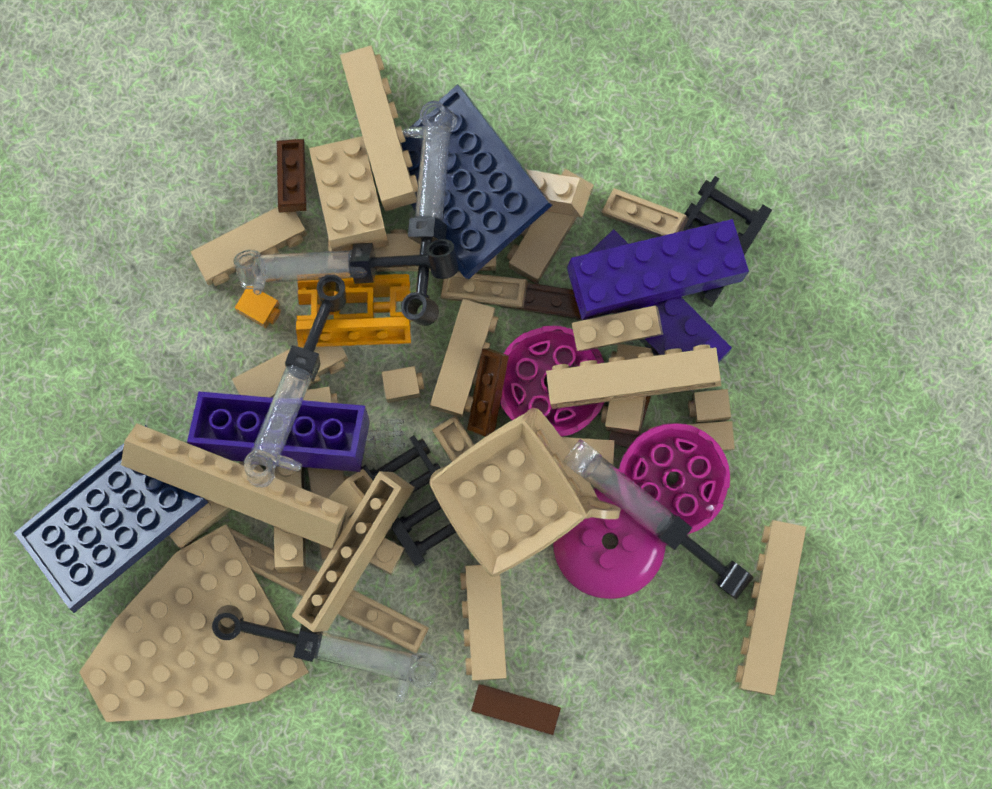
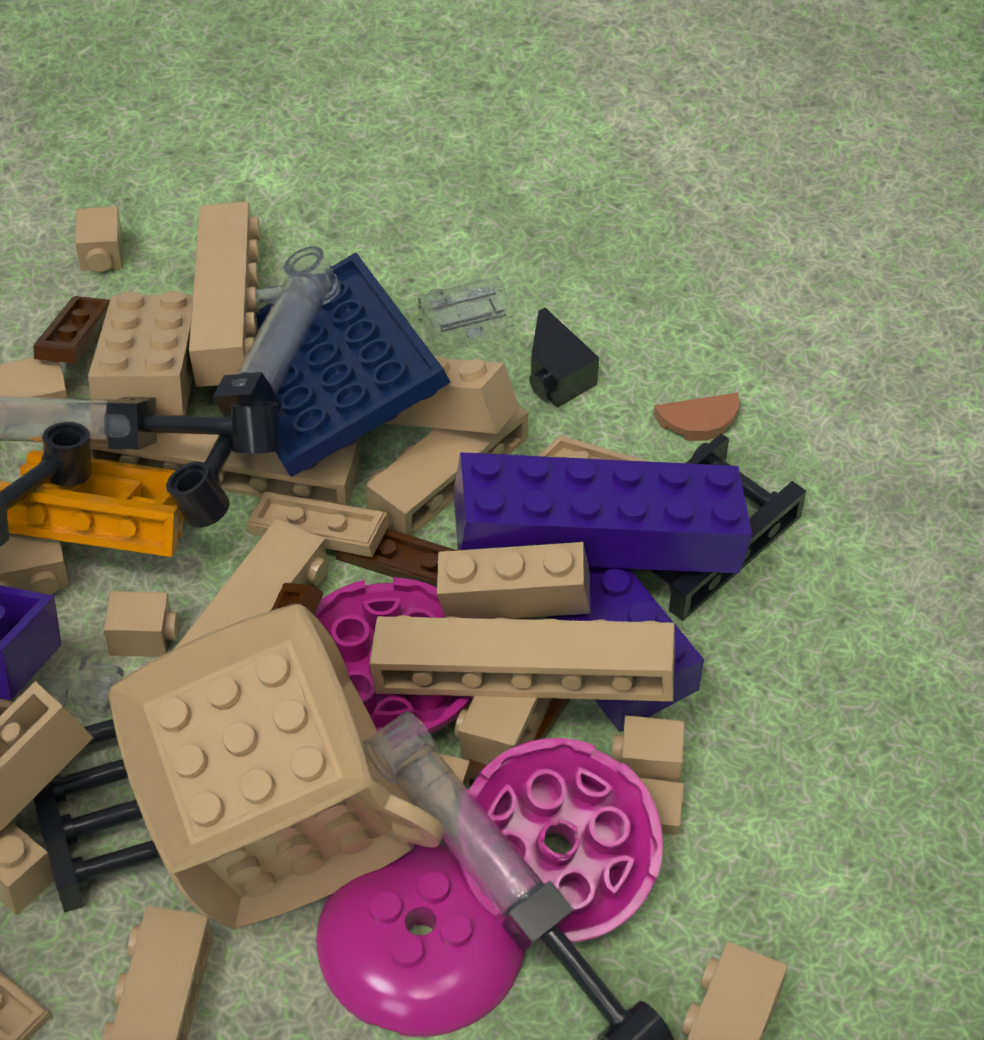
camera: 10 degrees right, 30 degrees down
(279, 91) = (99, 238): none -> tan brick
(534, 103) = (466, 314): none -> clear brick
(601, 131) = (560, 361): none -> black slope
(696, 153) = (699, 418): none -> nougat tile

